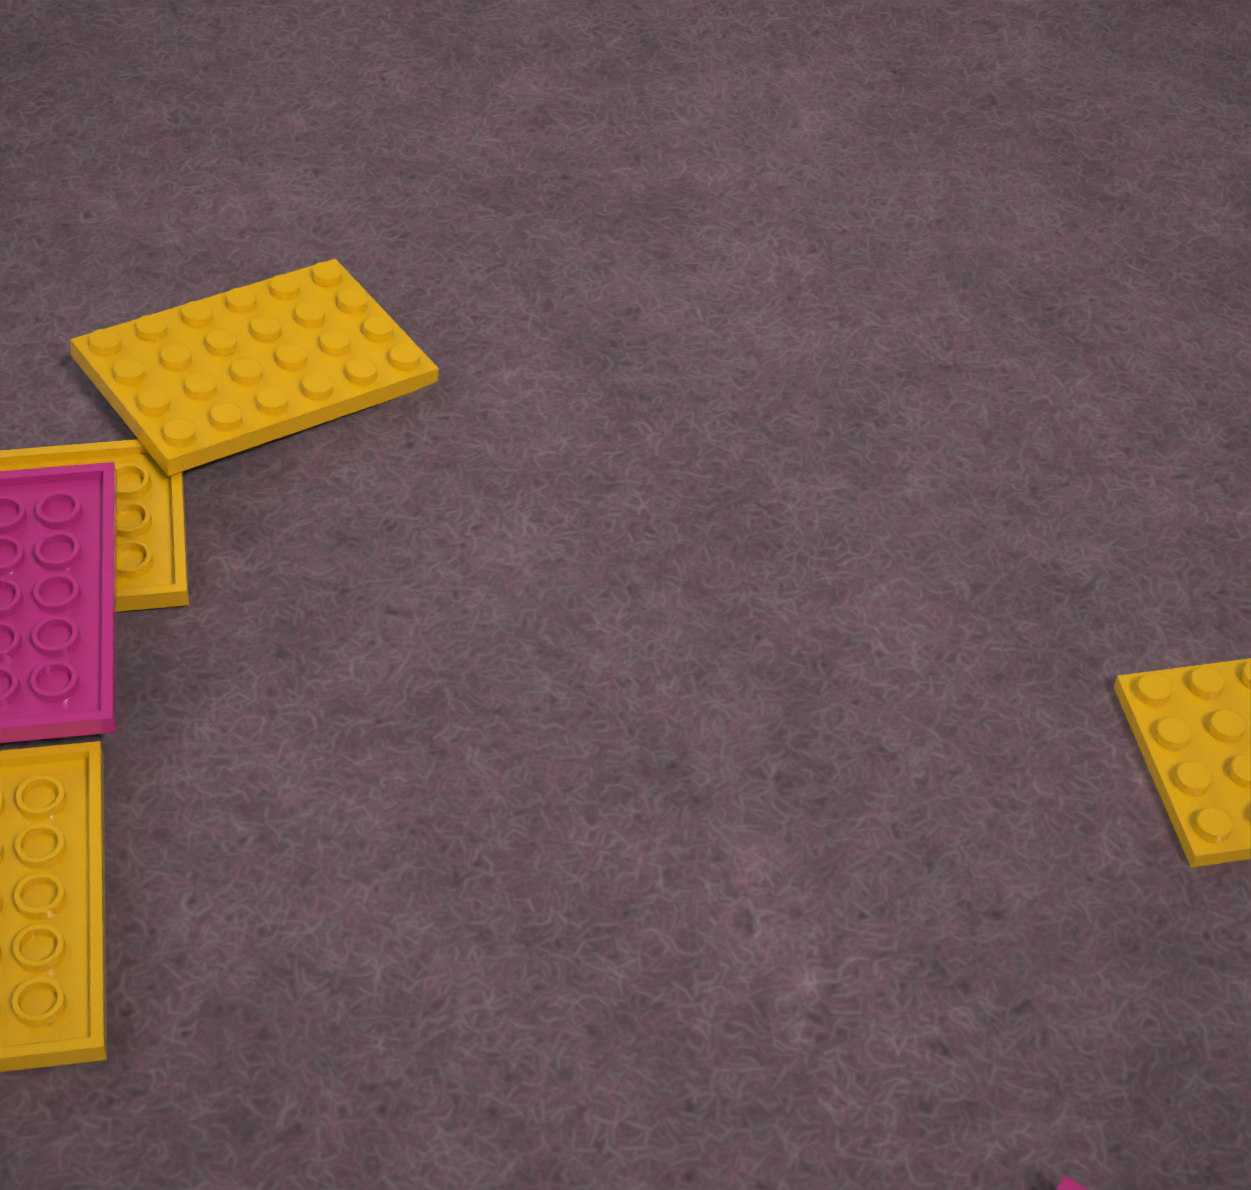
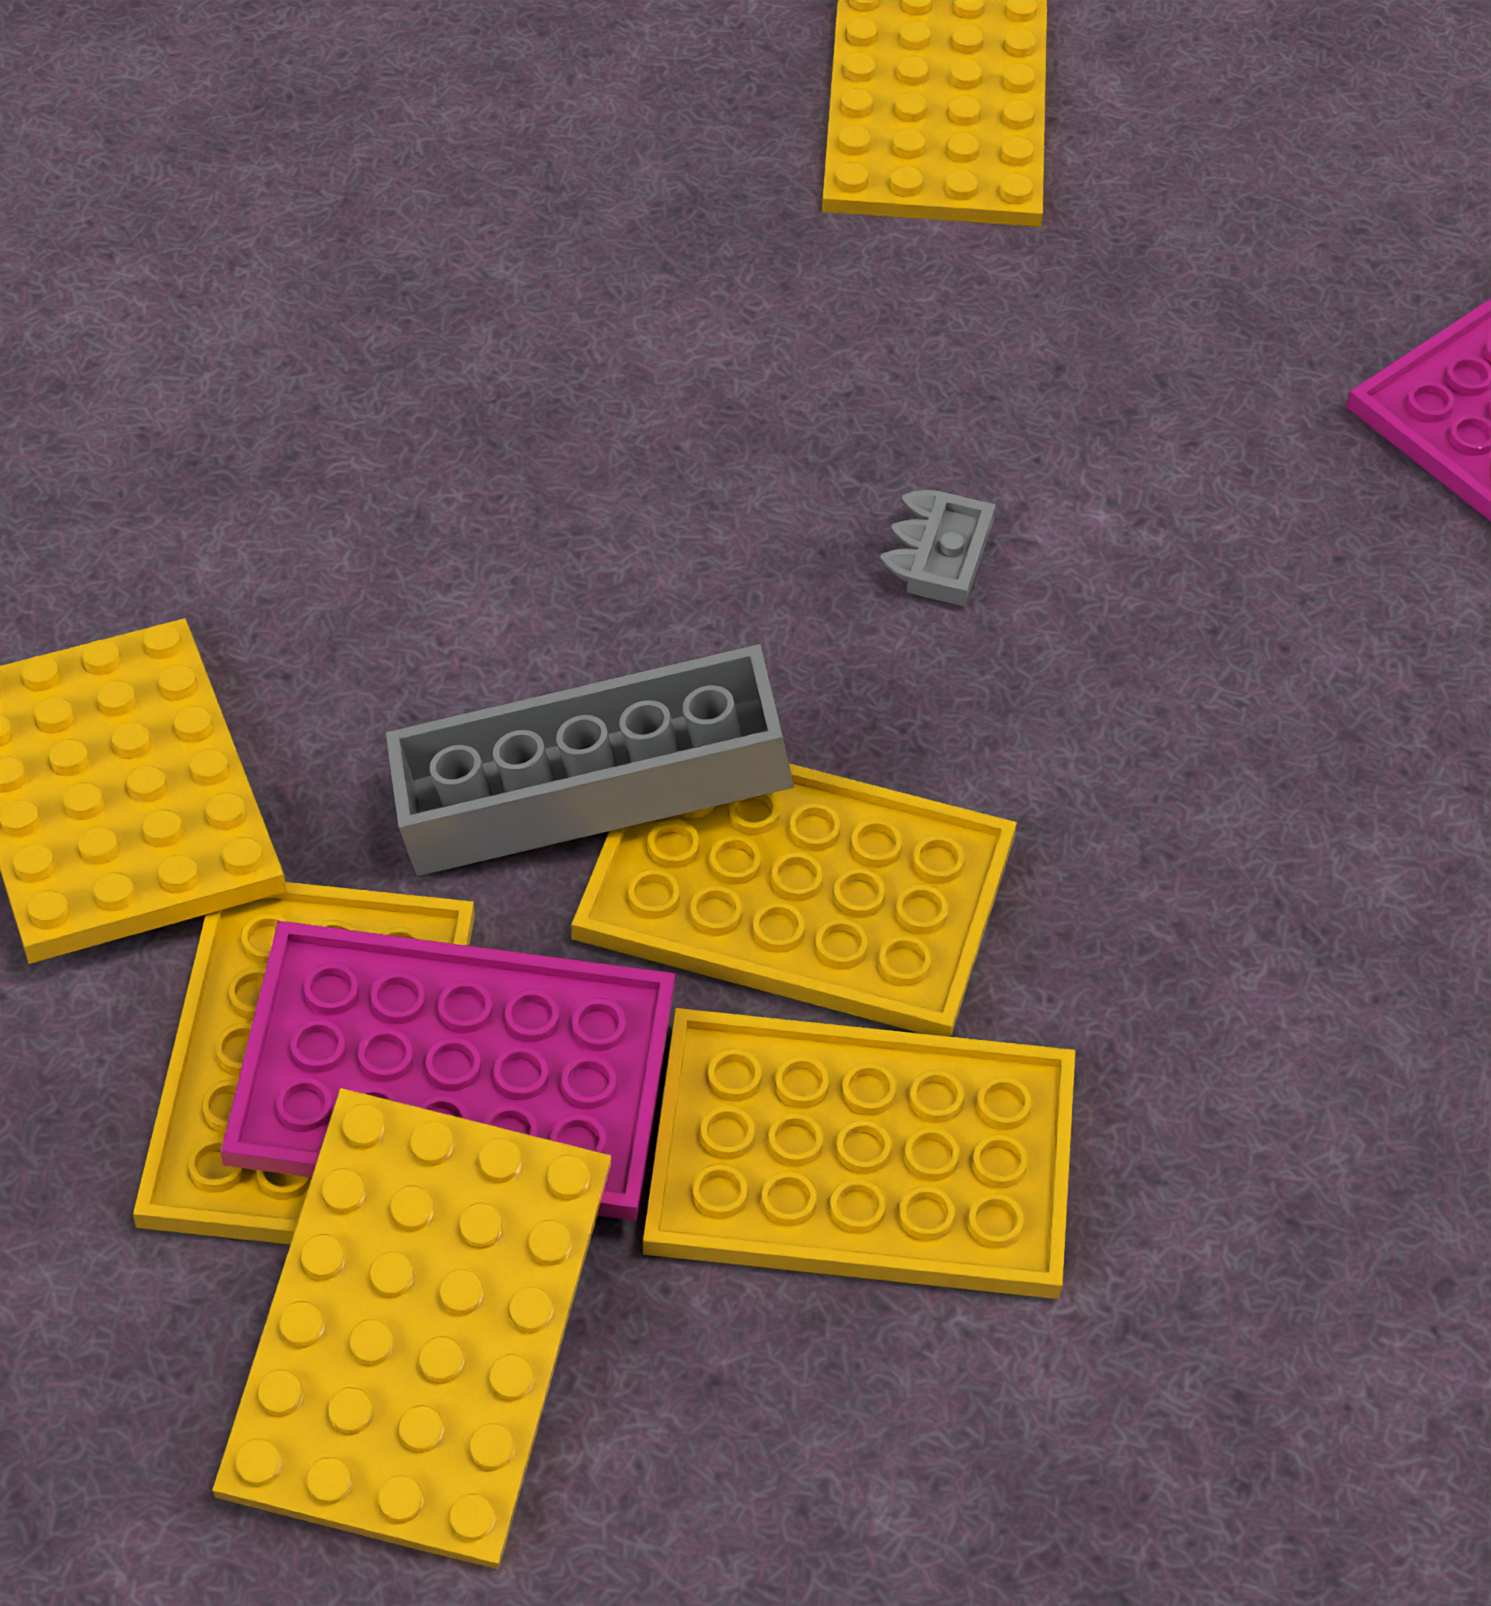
camera: 75 degrees left, 5 degrees up
(264, 815) = (810, 896): none -> yellow plate
(327, 619) = (587, 760): none -> light grey brick
(702, 847) = (942, 544): none -> light grey plate

